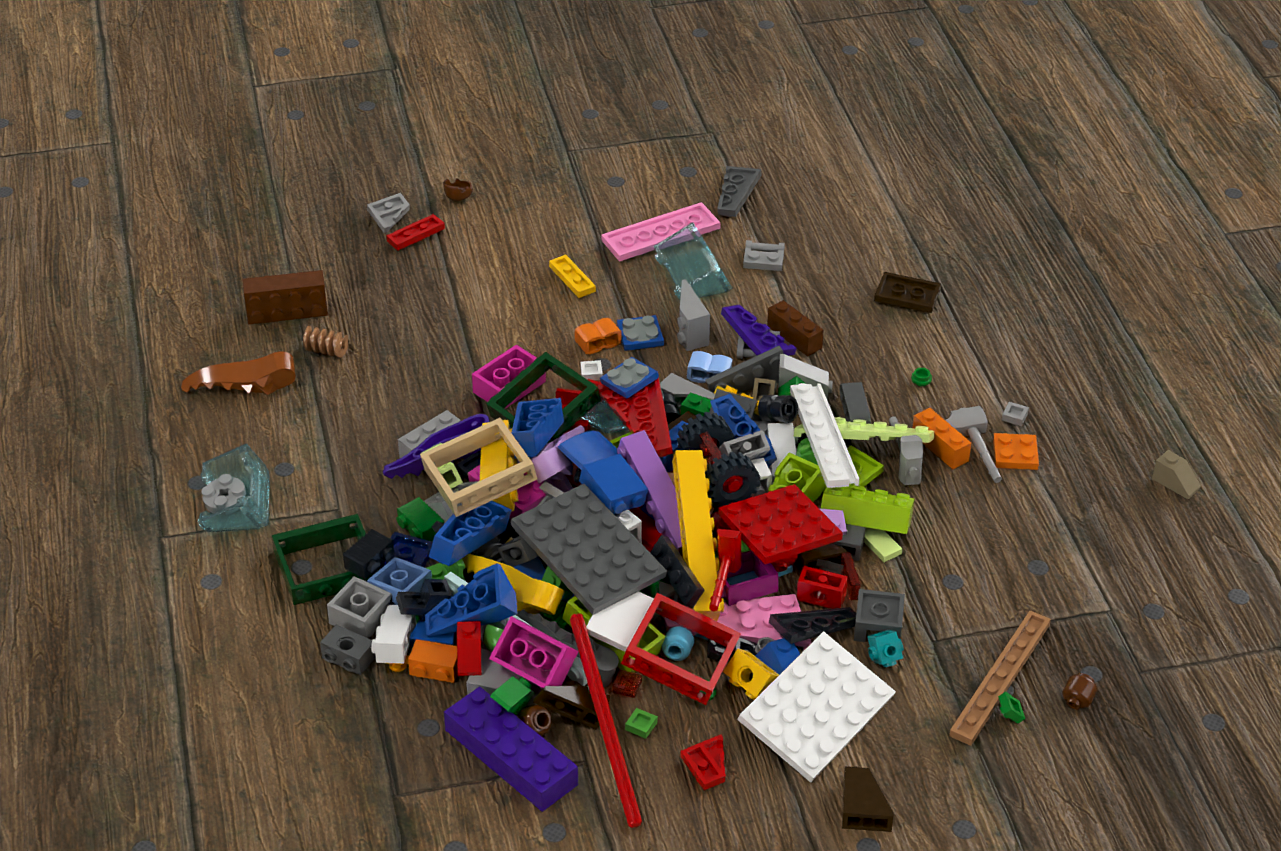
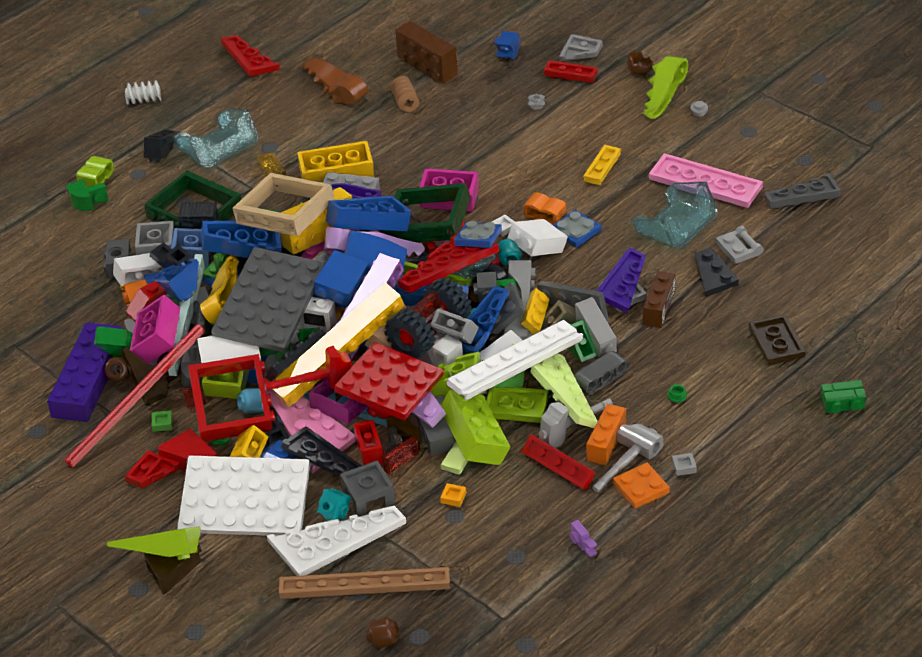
camera: 60 degrees right, 0 degrees up
(88, 515) = (142, 92): none -> white piece
(120, 418) = (247, 57): none -> red wing
(179, 609) = (95, 171): none -> lime brick
(193, 540) = (158, 144): none -> black slope
(211, 636) = (83, 197): none -> green brick
(225, 484) = (214, 131): light grey plate -> none
(325, 478) = (270, 164): none -> clear yellow plate
(332, 247) = (507, 44): none -> blue brick
(377, 436) = (340, 159): none -> yellow brick
(432, 272) = (536, 101): none -> light grey plate
(504, 184) = (667, 77): none -> lime animal
(556, 190) = (699, 108): none -> light grey plate
(647, 350) = (537, 237): none -> white brick
(689, 407) = (484, 284): none -> dark grey brick
(693, 320) = (606, 238): light grey slope -> none
(704, 365) = (565, 274): light blue brick -> none
(714, 718) = (185, 445): none -> red slope
(778, 408) = (527, 324): black wheel -> none
(789, 285) = (714, 272): none -> black wing
(856, 779) = (169, 543): none -> lime wedge
(923, 677) = (333, 539): none -> white wing
(932, 567) = (453, 495): none -> light orange plate
(948, 482) = (558, 462): none -> red plate
(1011, 707) = (333, 601): green plate -> none
(1013, 292) = (842, 396): none -> green brick
(1058, 512) = (580, 536): none -> medium lavender plate
(1176, 474) = (700, 589): dark tan slope -> none

